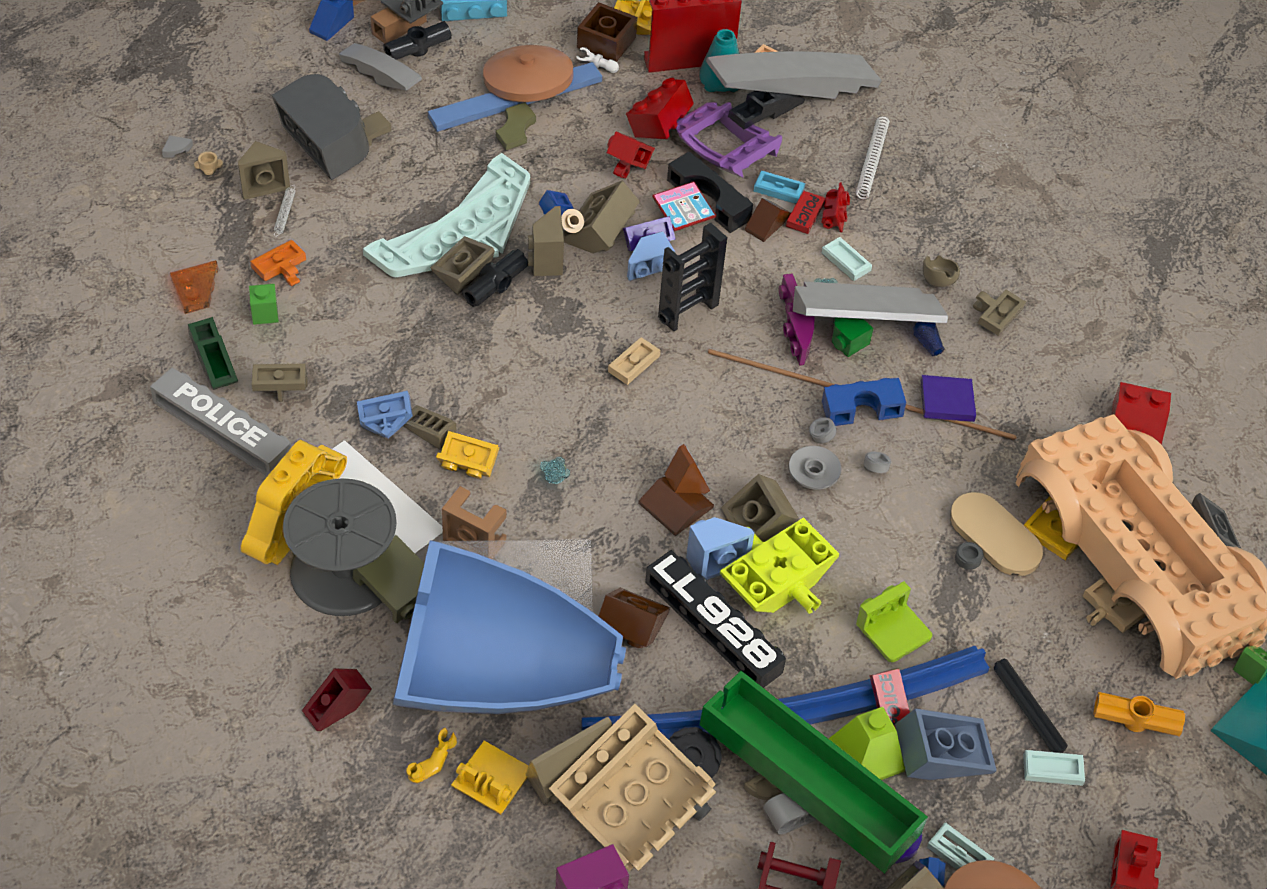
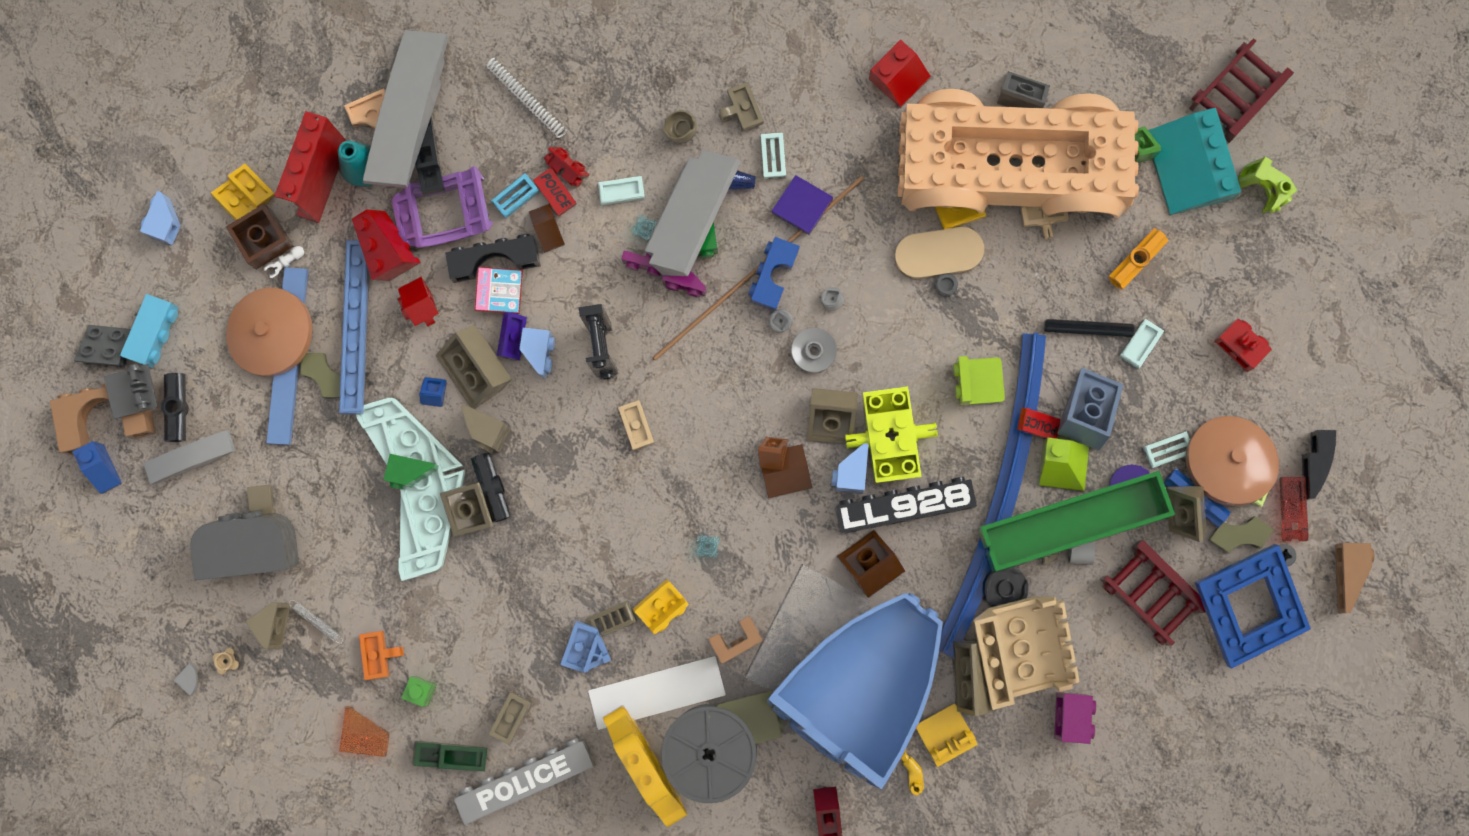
camera: 45 degrees left, 30 degrees up
(469, 205) = (407, 471): none -> green slope
(563, 128) = (354, 331): none -> medium blue tile
(572, 221) = (474, 398): tan cone -> none
(977, 360) = (774, 174): none -> light aqua tile

